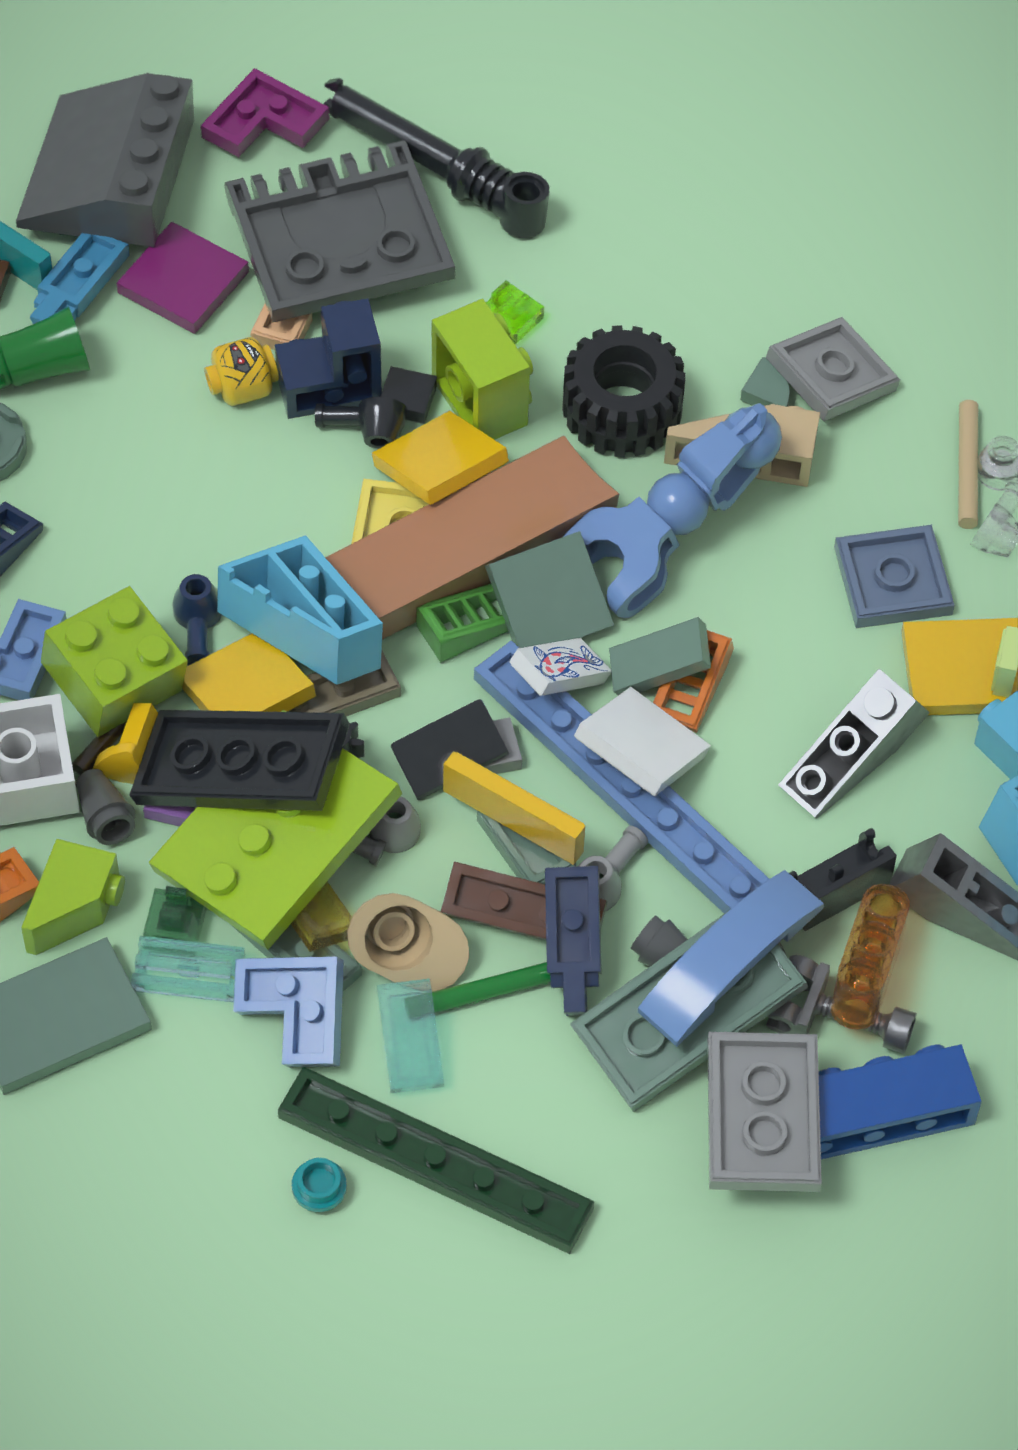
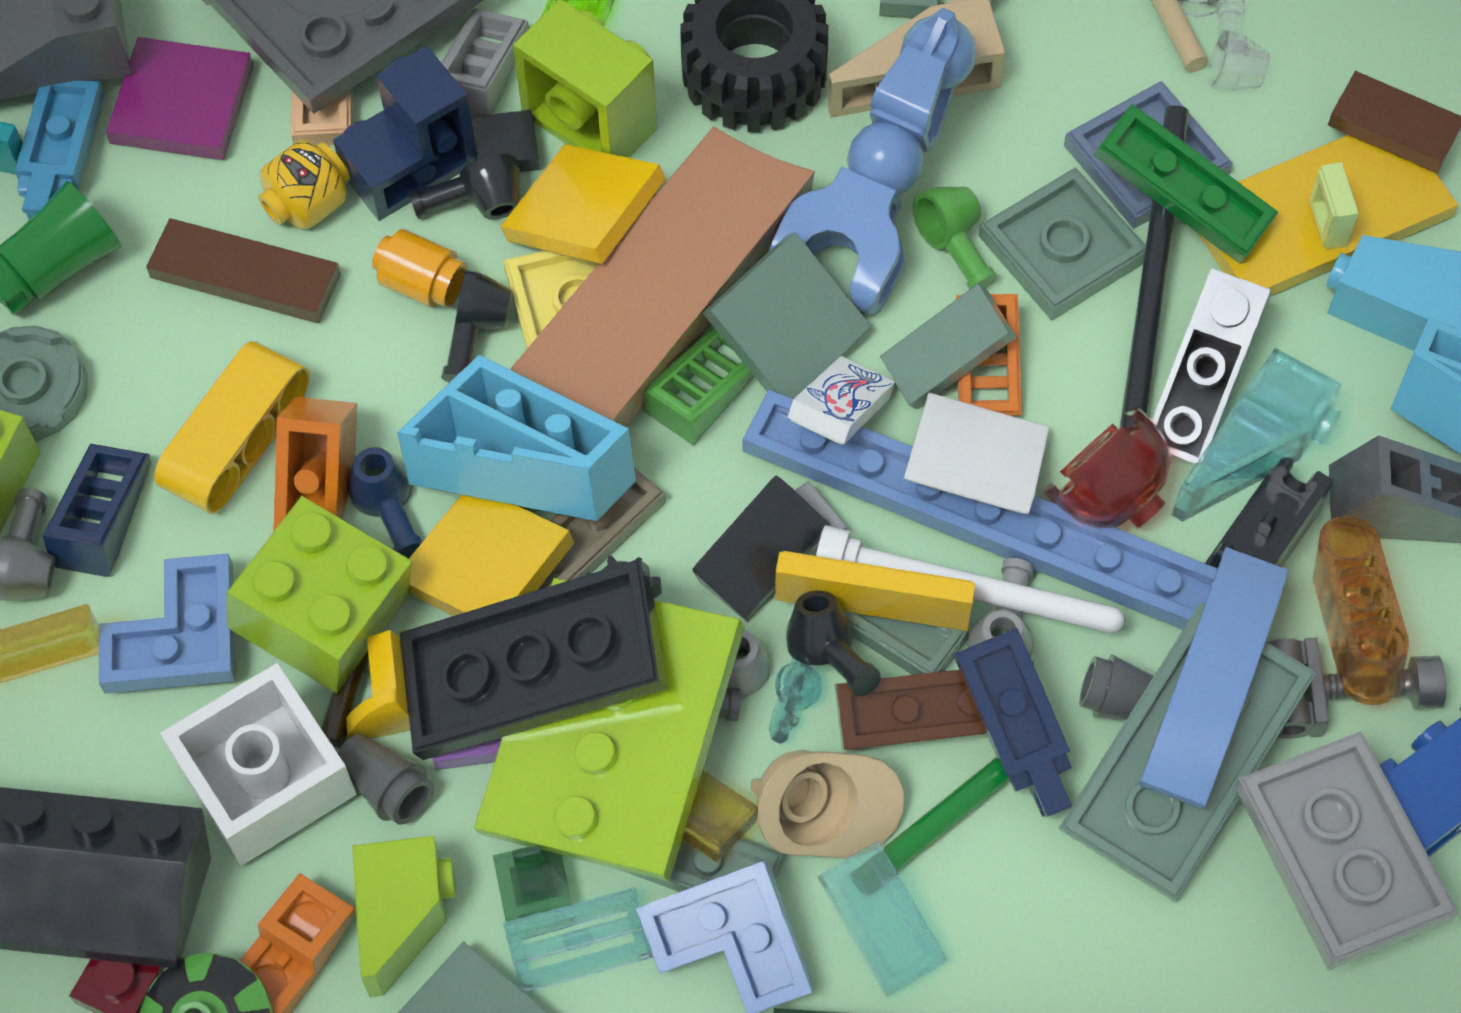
camera: 20 degrees left, 5 degrees up
(110, 525) = (230, 427): none -> yellow beam
(158, 563) = (314, 454): none -> orange slope
(171, 418) = (244, 270): none -> reddish brown tile
(297, 462) = (419, 269): none -> light orange brick
(329, 505) = (480, 308): none -> black bar
(407, 352) = (483, 60): none -> light grey slope
(429, 857) = (797, 689): none -> clear light blue piece
(464, 826) = (822, 636): none -> black bar
(508, 768) = (838, 544): none -> white piece
(709, 567) = (944, 219): none -> bright green bar
(737, 795) = (1116, 476): none -> clear red cylinder
(794, 618) = (1063, 243): none -> sand green tile
(888, 796) = (1272, 420): none -> clear light blue slope
(897, 590) = (1151, 290): none -> black bar
(900, 603) = (1186, 183): none -> green tile

